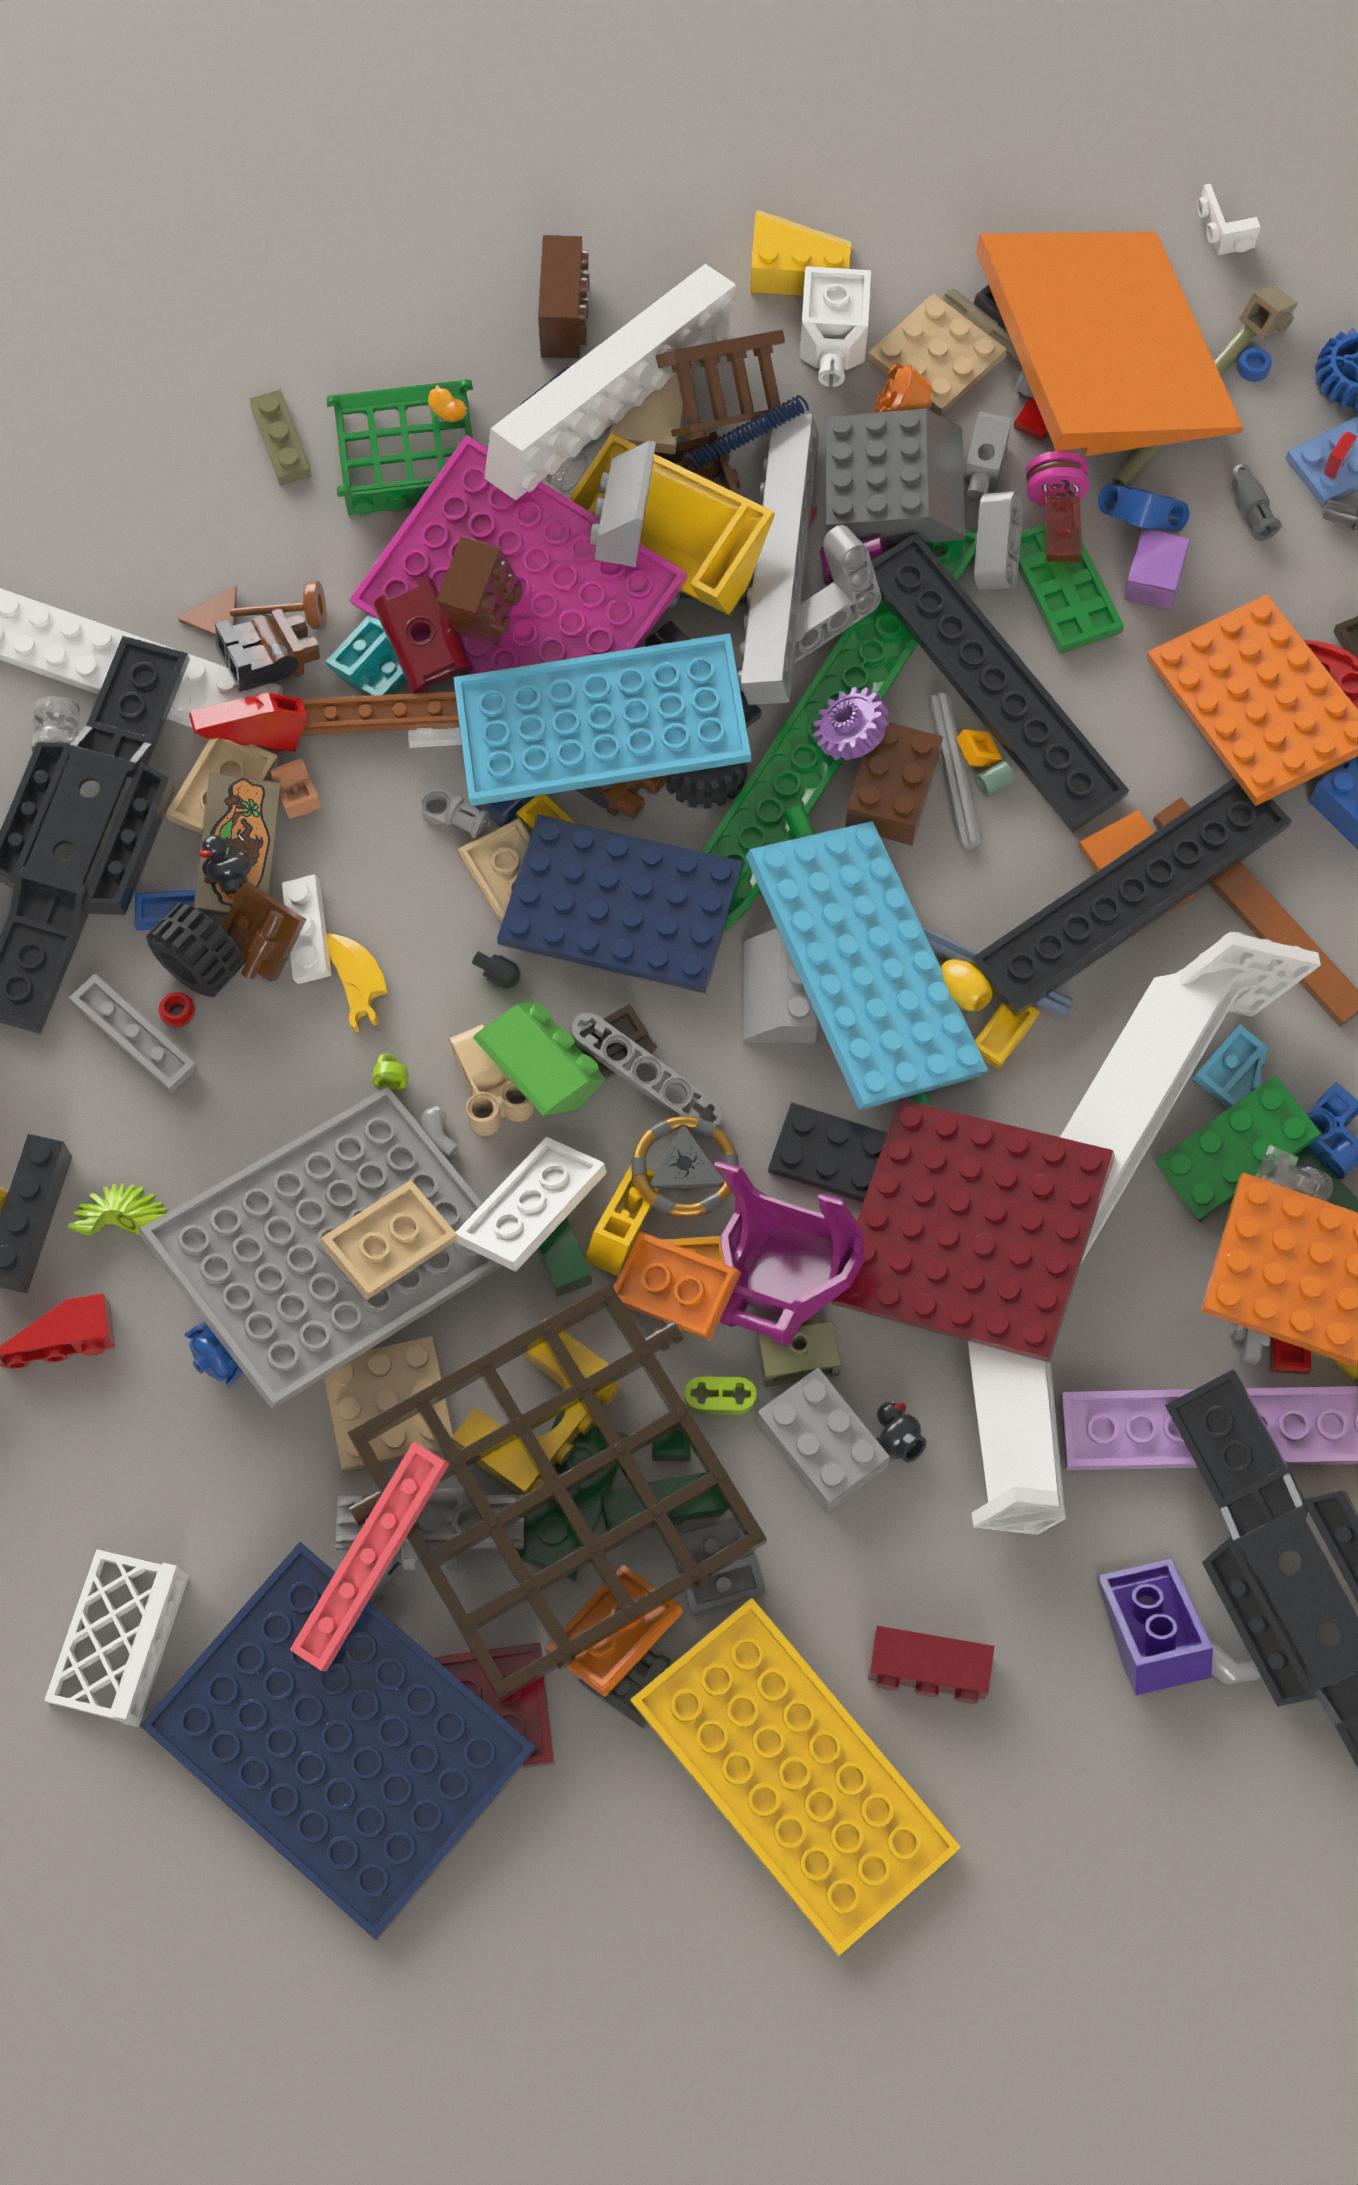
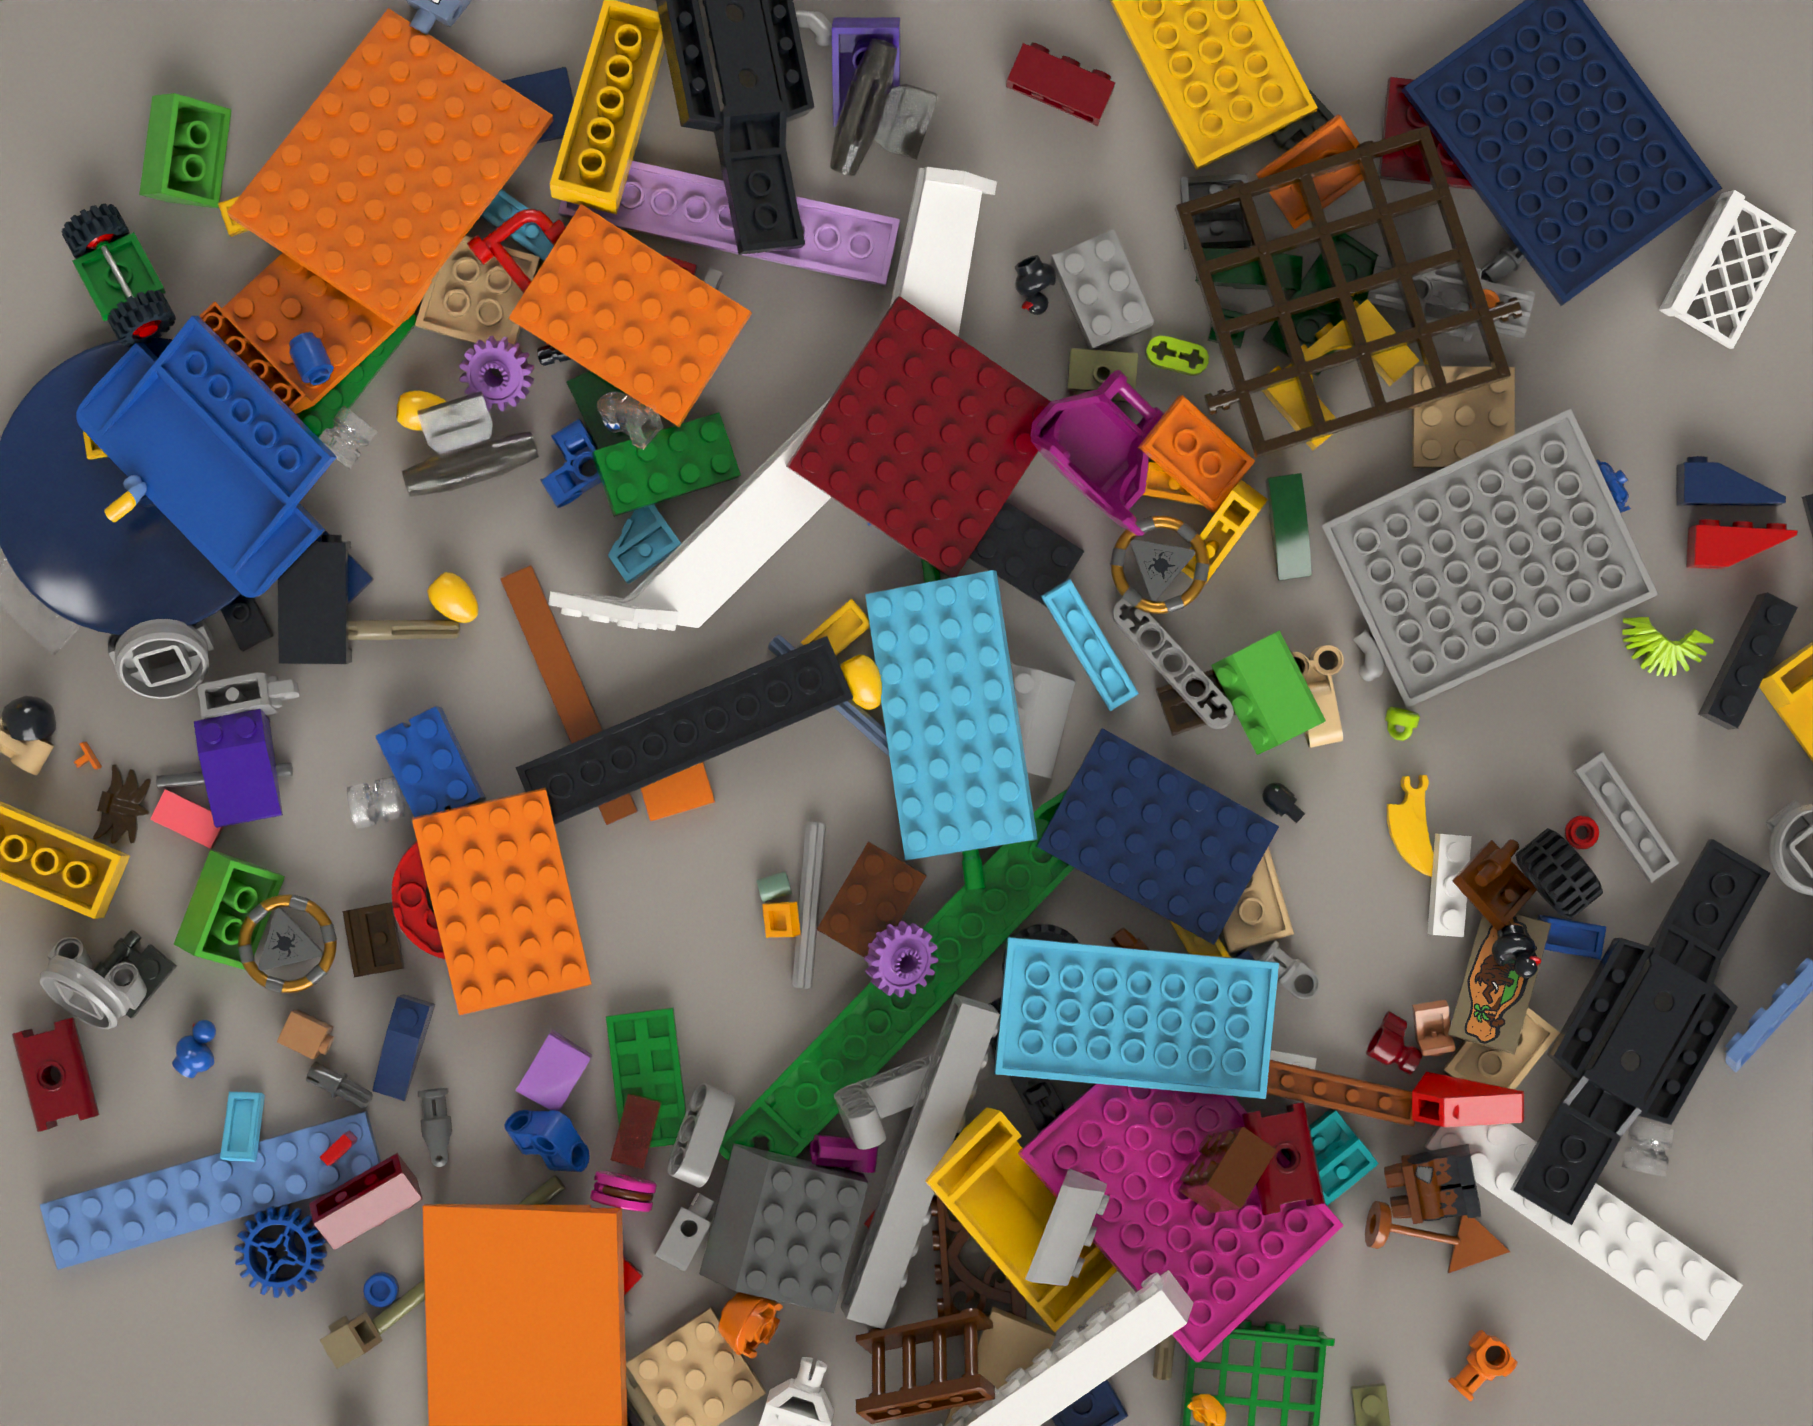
camera: 165 degrees left, 20 degrees up
(91, 1390) = (1717, 485): none -> dark blue slope
(186, 510) = (1479, 1368): none -> orange connector
(339, 769) = (1388, 1045): none -> dark red piece
(369, 1556) = (1512, 264): coral plate -> none
(388, 1239) = (1439, 545): tan plate -> none
(530, 1203) = (1304, 558): white plate -> none
(739, 1074) = (1089, 644): none -> medium azure tile
(763, 427) = (916, 1310): dark blue piece -> none
(996, 684) = (749, 984): black plate -> none
(1133, 1575) = (877, 111): none -> clear smoke plate
(1297, 422) = (365, 1201): none -> brick
(1310, 566) = (402, 1046): none -> dark blue slope

